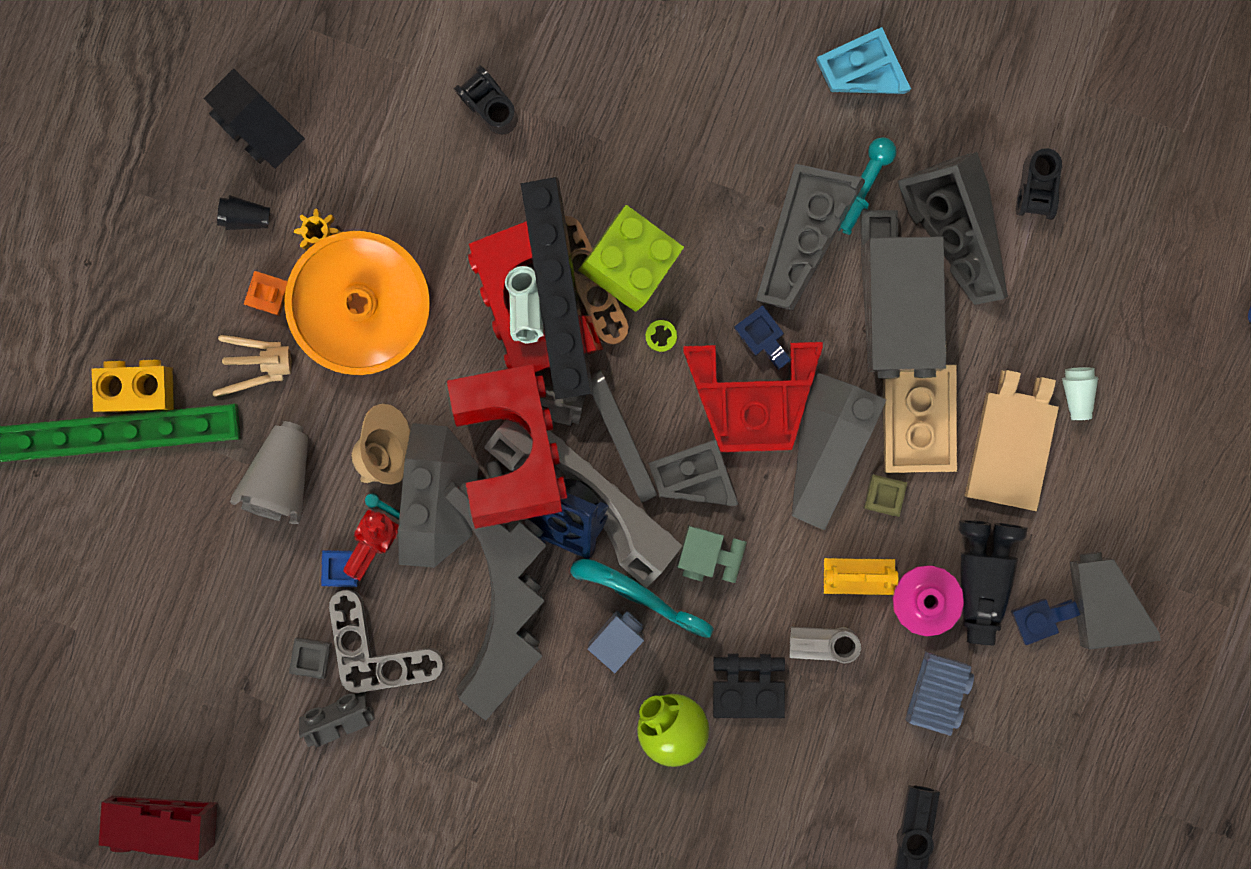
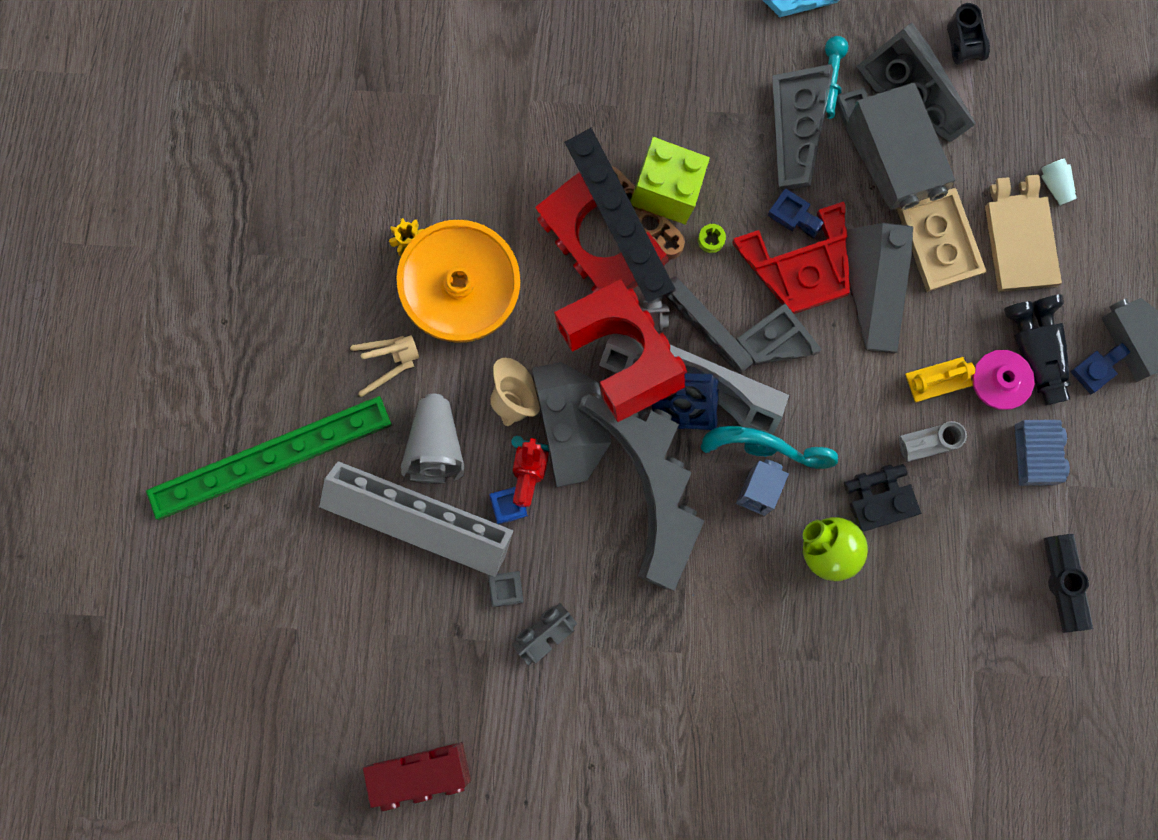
camera: 15 degrees left, 10 degrees down
(132, 395) = (291, 416): yellow brick -> none
(232, 555) = (415, 518): none -> light grey brick
(242, 214) = (341, 243): black cone -> none
(249, 116) = (330, 159): black brick -> none
(266, 293) = (380, 300): orange tile -> none
(363, 657) = (550, 574): light grey beam -> none
(484, 97) = (509, 97): black piece -> none
(525, 309) = (597, 237): light aqua piece -> none
(703, 551) = (808, 397): sand green brick -> none
(885, 495) = (935, 309): olive tile -> none

